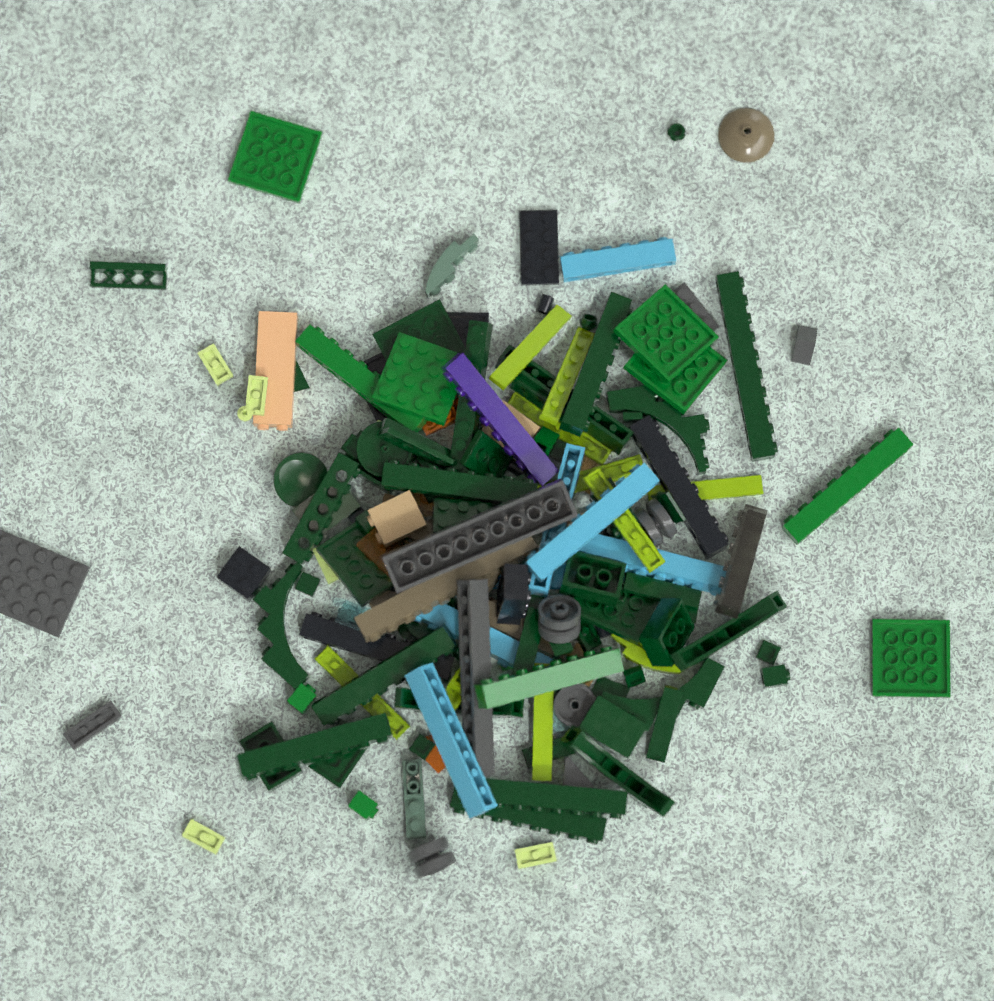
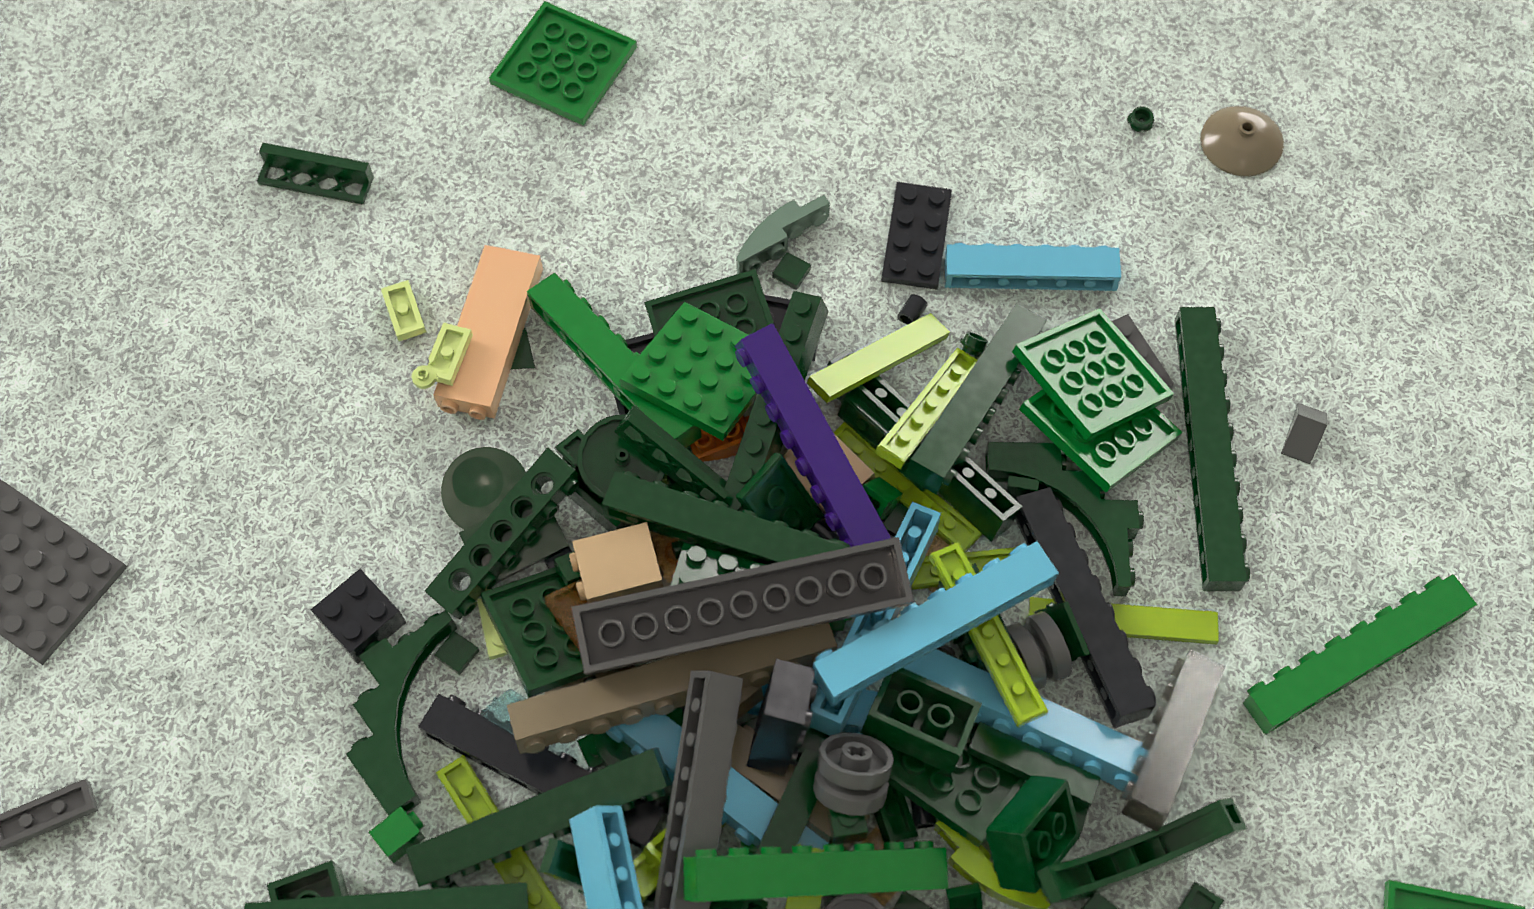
camera: 10 degrees right, 15 degrees down
(461, 289) = (791, 271): none -> dark green tile

